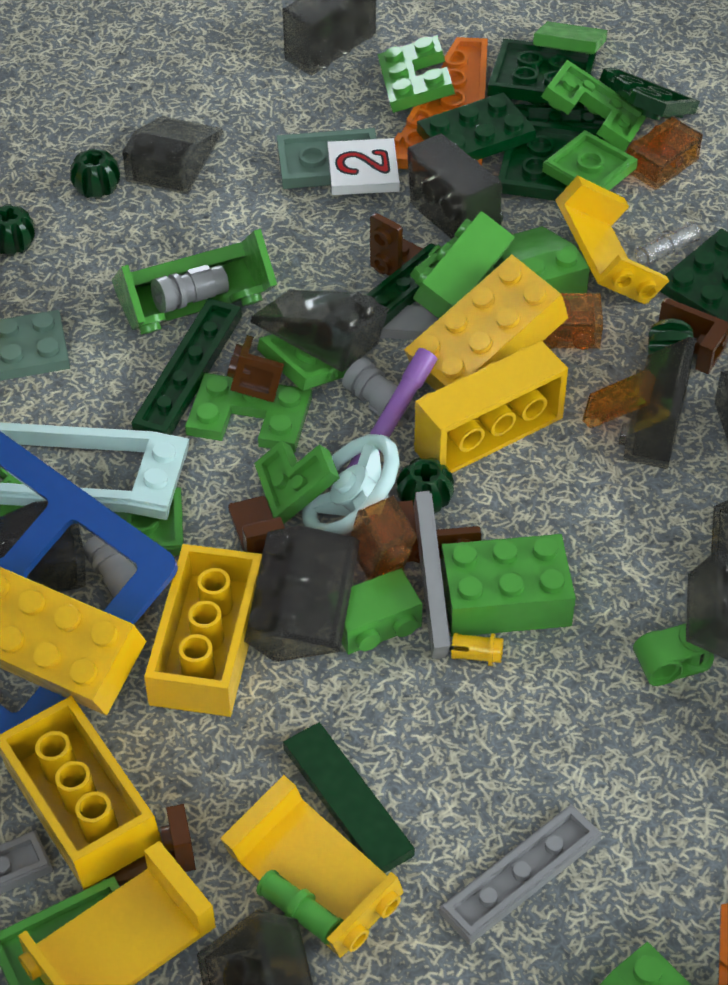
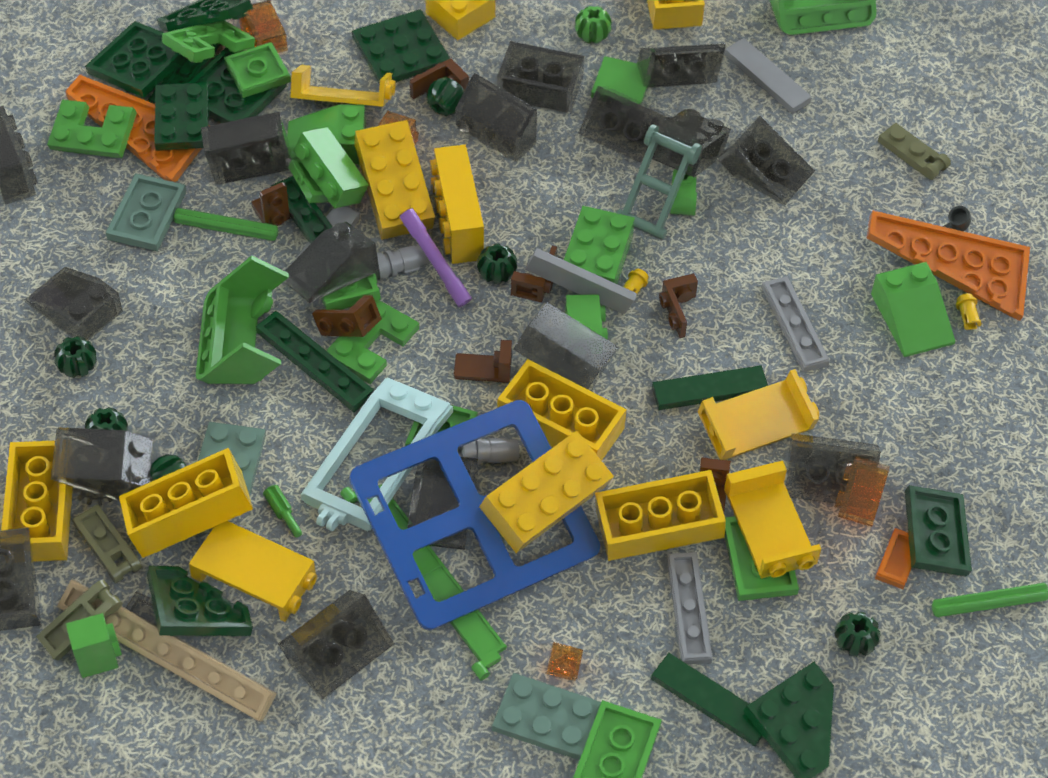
camera: 70 degrees left, 5 degrees up
(193, 286) = (241, 327): light grey axle -> none
(291, 483) = (461, 335): bright green plate -> none
(298, 905) = (781, 430): bright green pin -> none
(354, 236) = (226, 224): none -> bright green axle
(358, 485) = (486, 298): light aqua piece -> none
(363, 166) = (179, 192): white tile -> none
(384, 537) = (540, 287): clear orange brick -> none
(486, 693) = (675, 291): none -> reddish brown bracket
(570, 37) = (112, 28): bright green tile -> none
(619, 398) = (482, 137): clear orange tile -> none
(667, 244) = (349, 63): clear pin -> none
(694, 608) = (690, 154): none -> sand green piece

